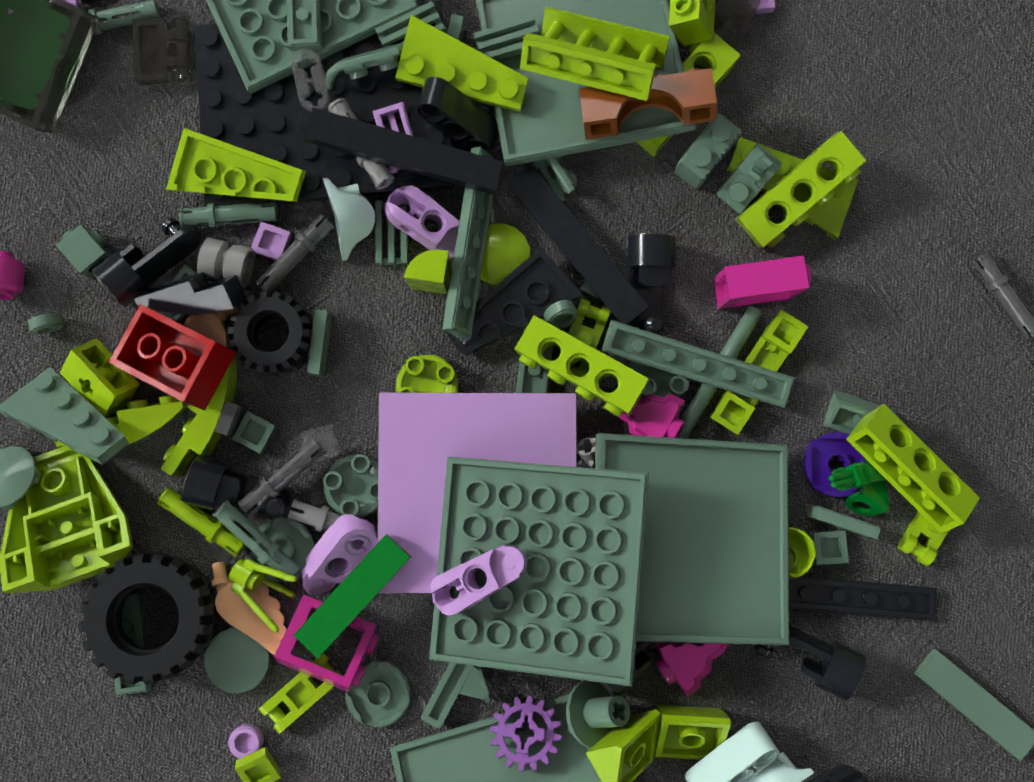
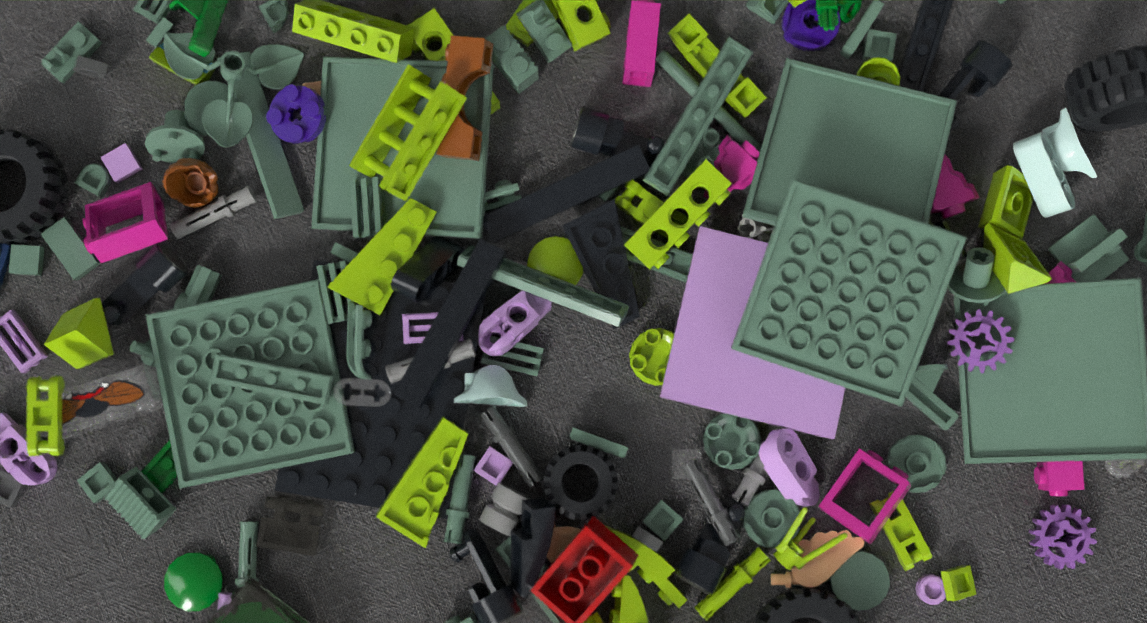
camera: 80 degrees left, 0 degrees up
(227, 513) = (735, 554): sand green pin -> none
(352, 596) = (832, 459): green tile -> none
(430, 272) = (561, 326): lime brick -> none
(501, 568) = (842, 321): lavender piece -> none
(561, 314) = (626, 222): sand green tile -> none

